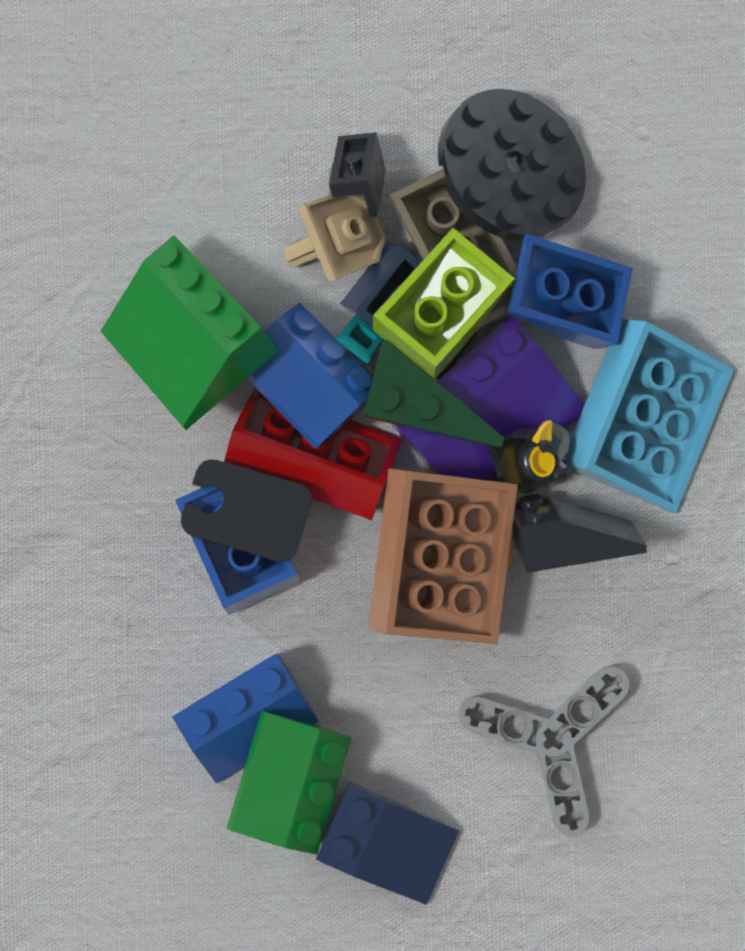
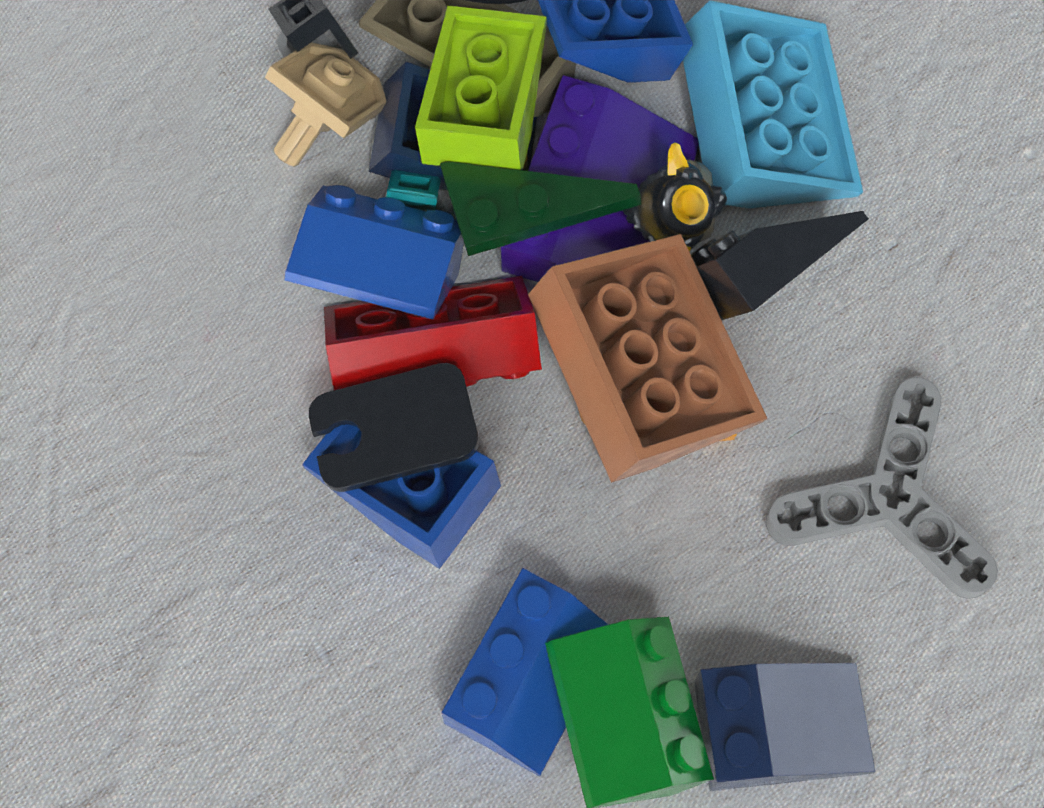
camera: 30 degrees left, 15 degrees down
(185, 333) = (213, 274): green slope -> none

